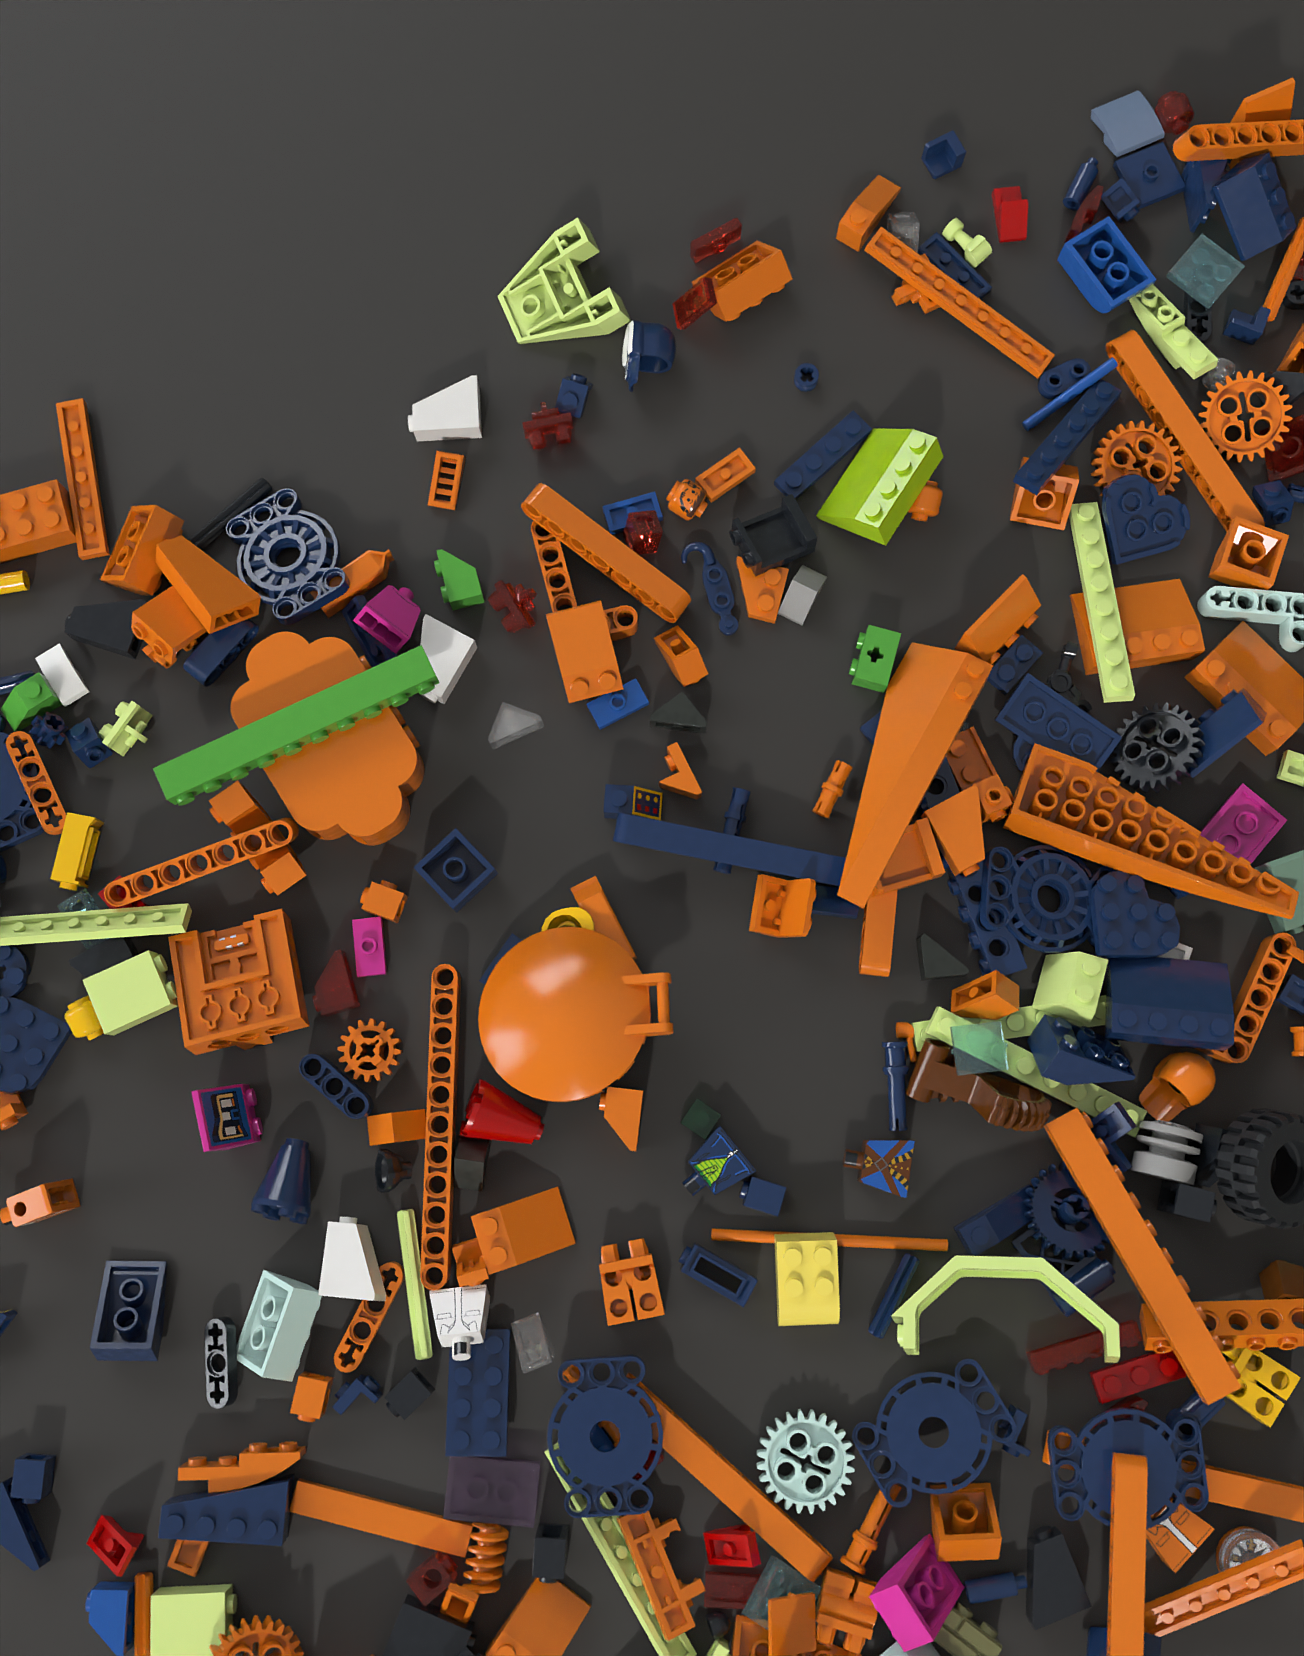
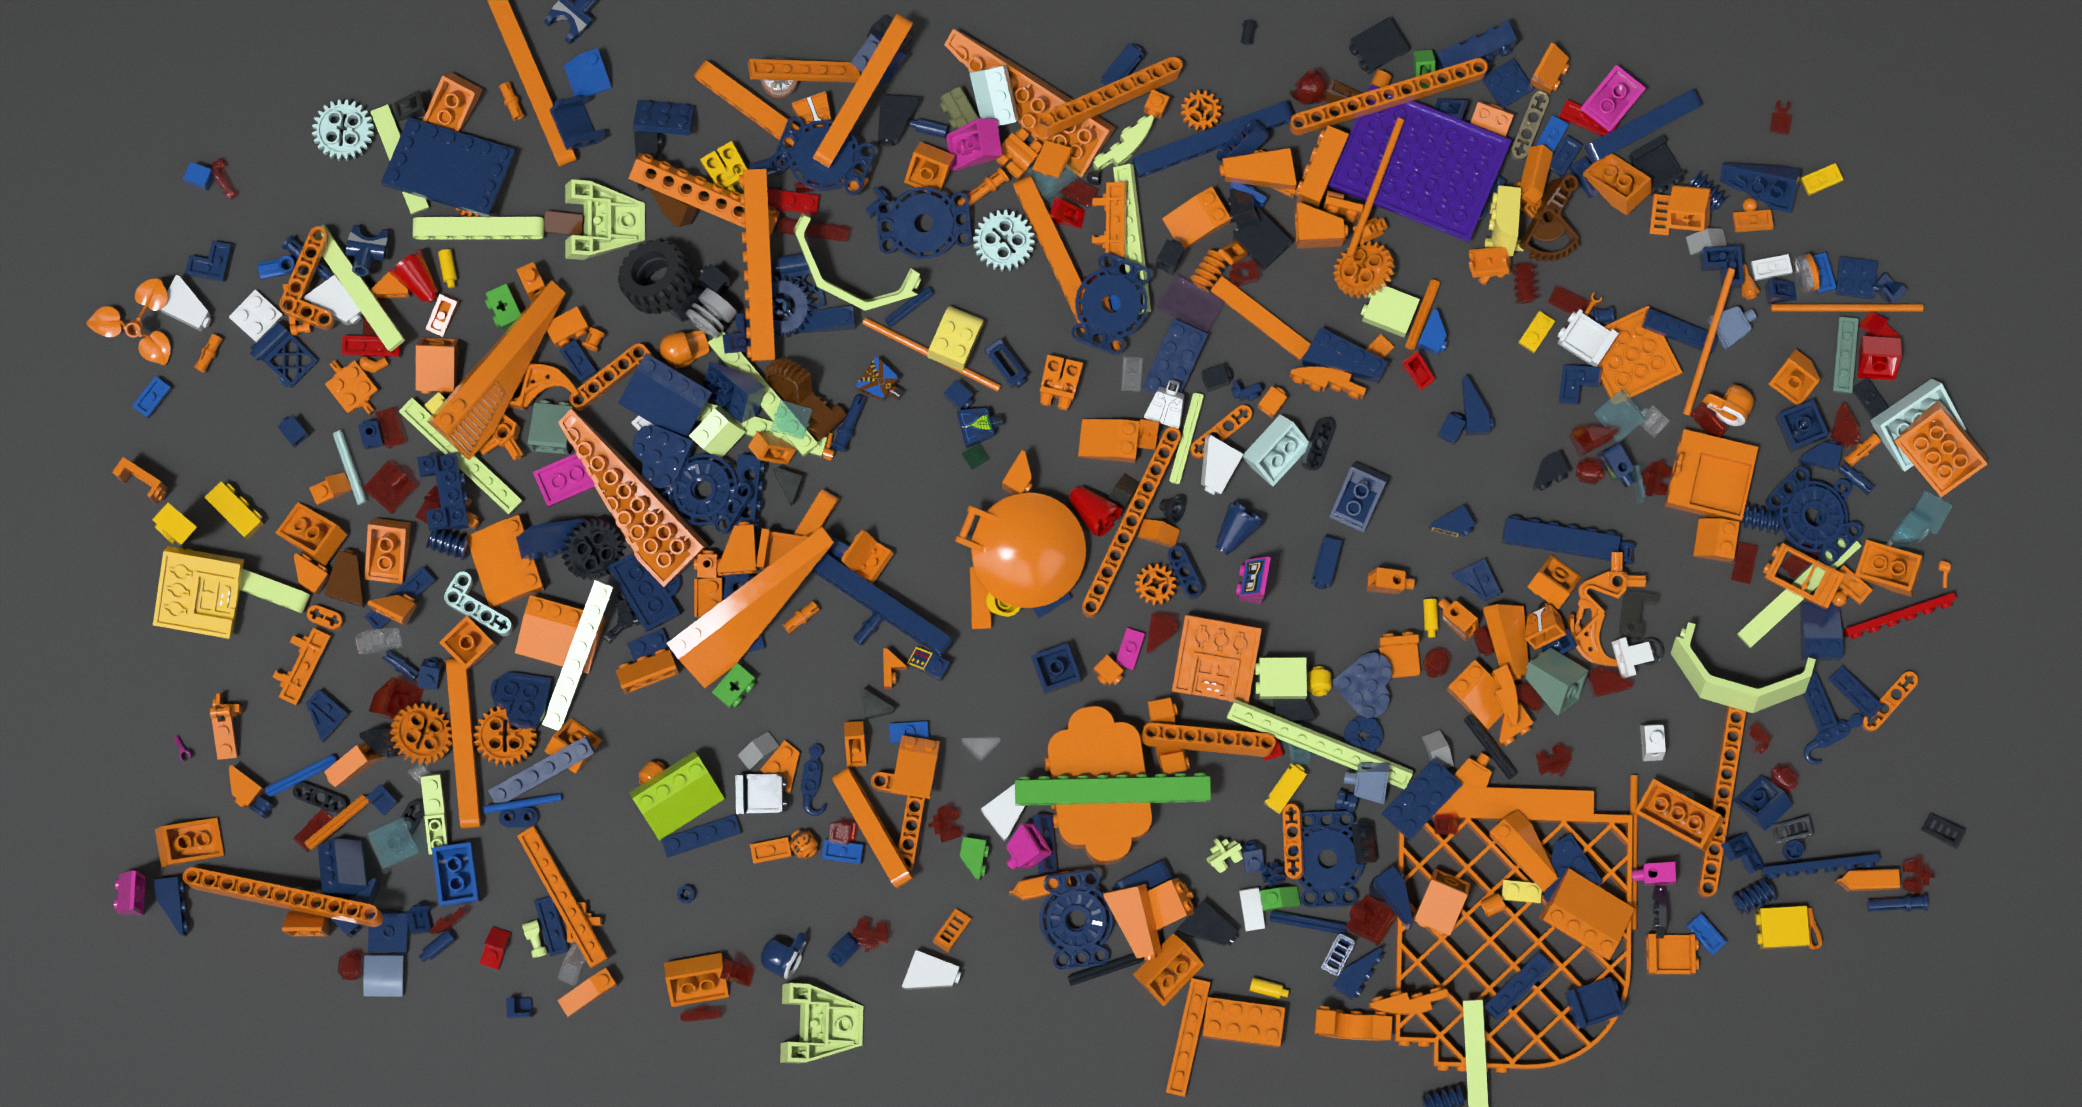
camera: 160 degrees left, 0 degrees up
(140, 1191) = (1326, 563): none -> dark blue window

